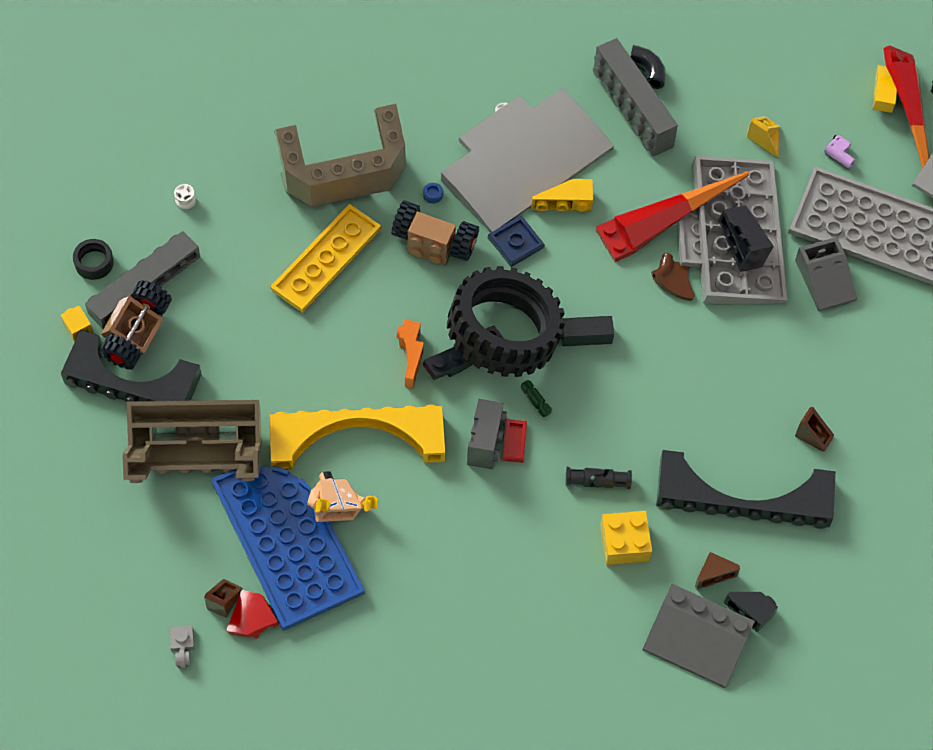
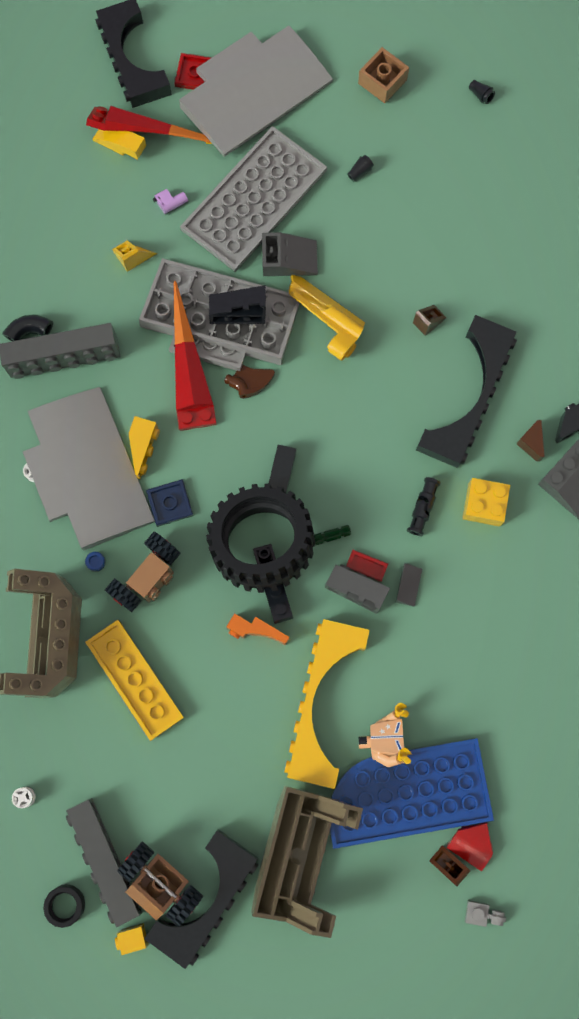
camera: 70 degrees left, 15 degrees up
(507, 485) = (408, 585): none -> dark grey slope
(775, 335) = (331, 313): none -> yellow panel

